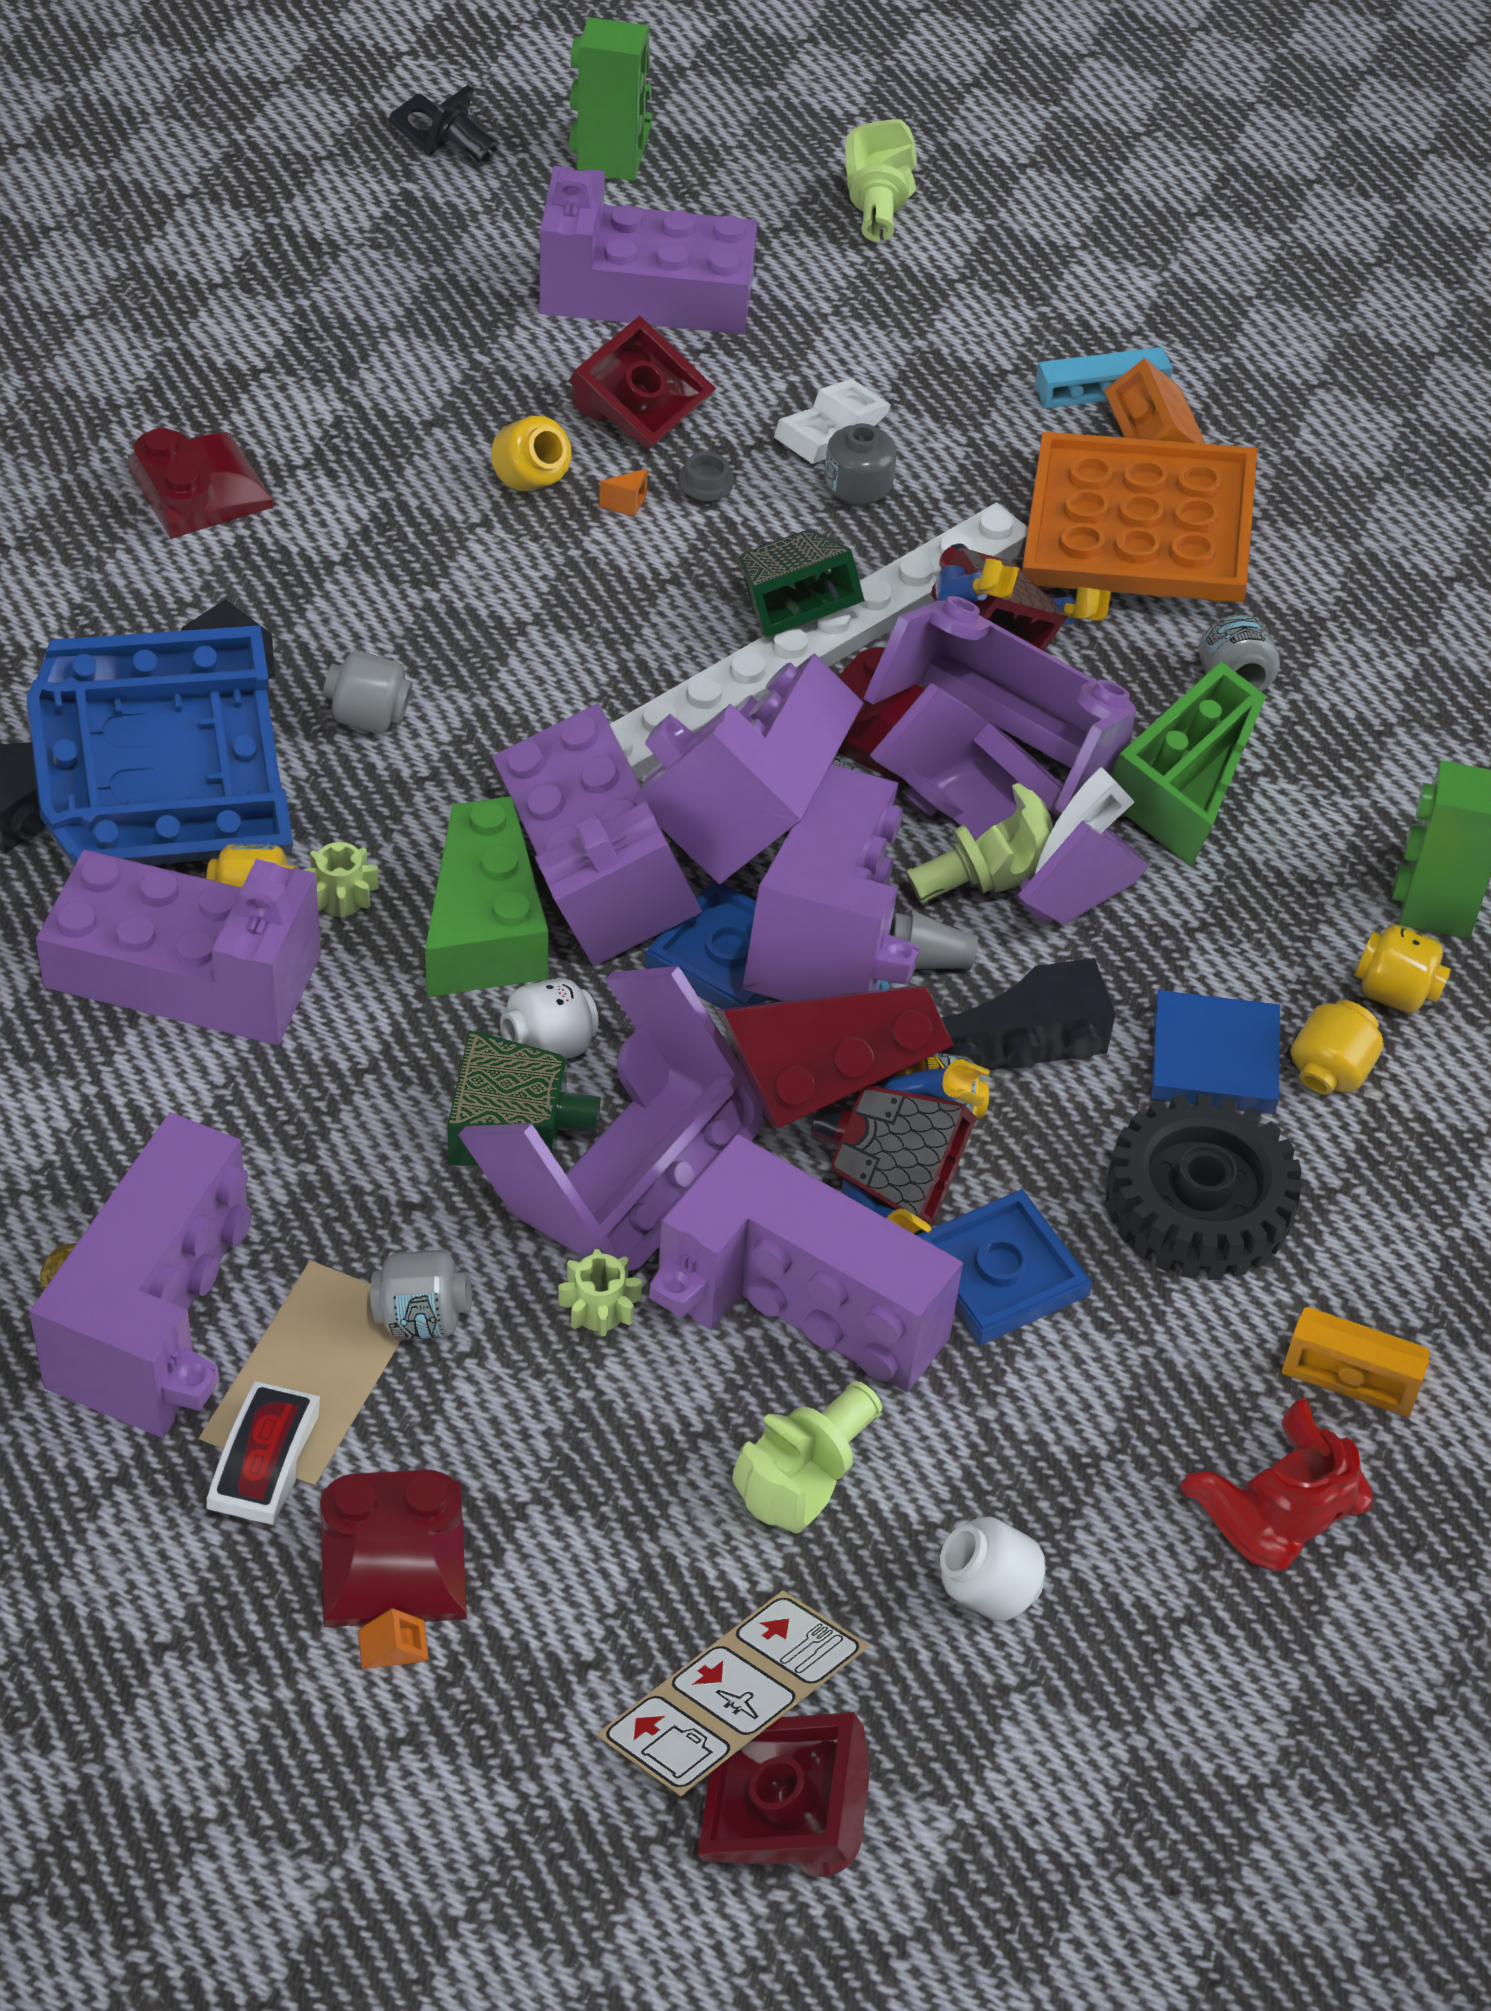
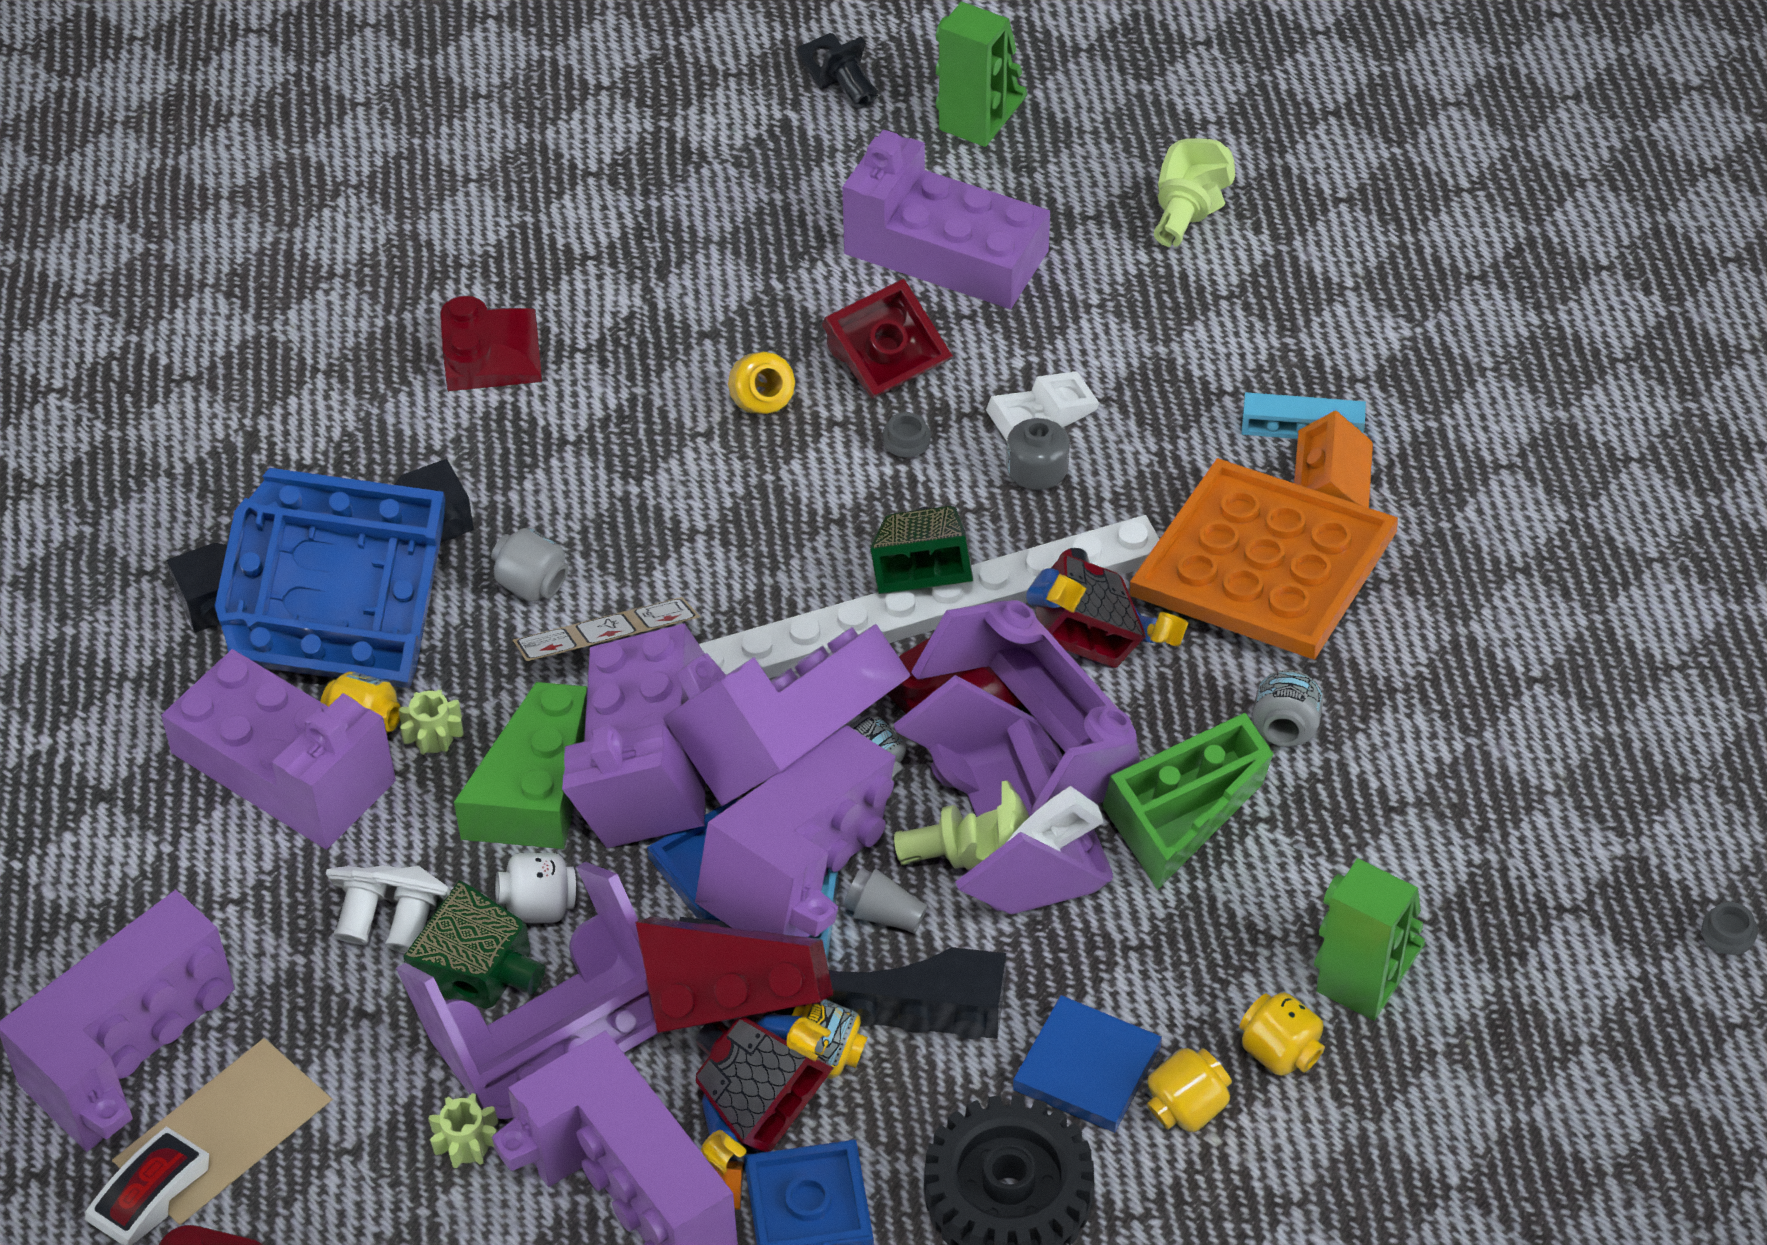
camera: 25 degrees right, 0 degrees up
(415, 1056) = (409, 887): none -> white connector
(420, 1295) = (322, 1092): light grey head -> none
(487, 739) = (605, 628): none -> sticker
(624, 492) = (832, 434): orange piece -> none

